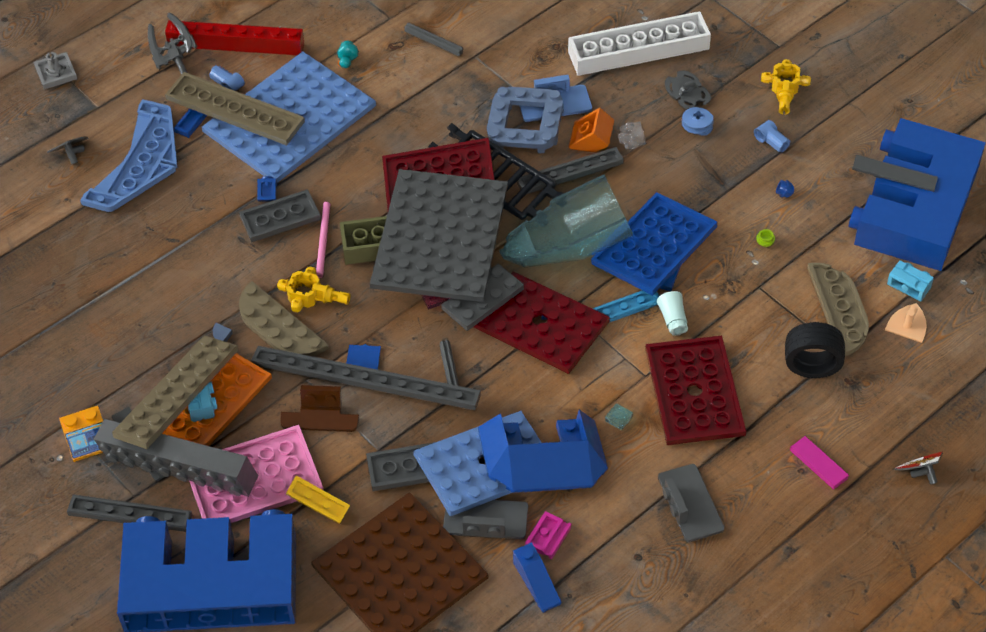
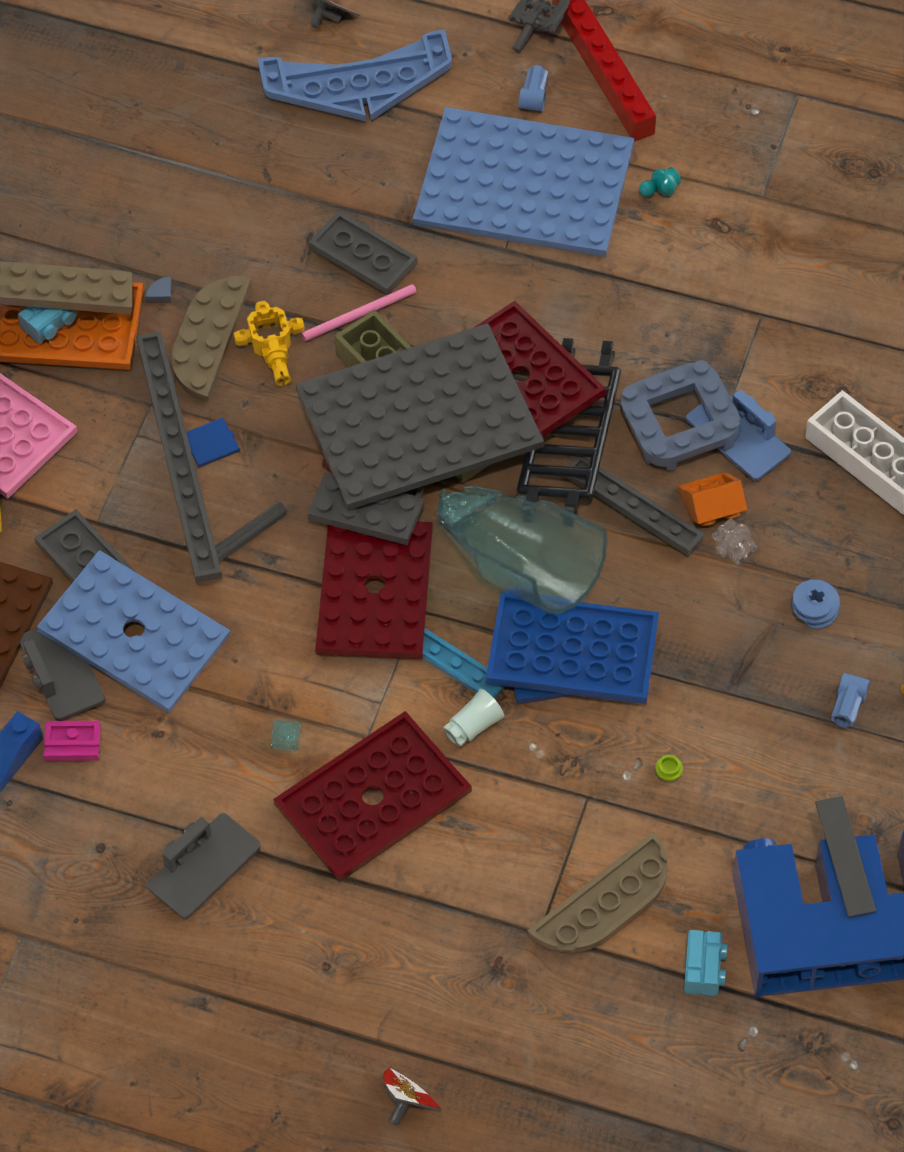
camera: 60 degrees right, 5 degrees up
(189, 123) = (449, 93): blue tile -> none
(235, 108) = (485, 121): dark tan plate -> none
(266, 189) = (392, 218): blue bracket -> none
(320, 411) = (109, 438): reddish brown plate -> none
(433, 39) = (754, 257): dark grey axle -> none
(560, 465) = (158, 698): blue slope -> none
(687, 89) = (864, 567): dark grey shield -> none
(785, 189) = (766, 753): blue plate -> none
(815, 336) = (495, 892): black tyre -> none
(819, 462) = (346, 979): dark pink tile -> none
(908, 323) = (639, 992): light nougat shield -> none

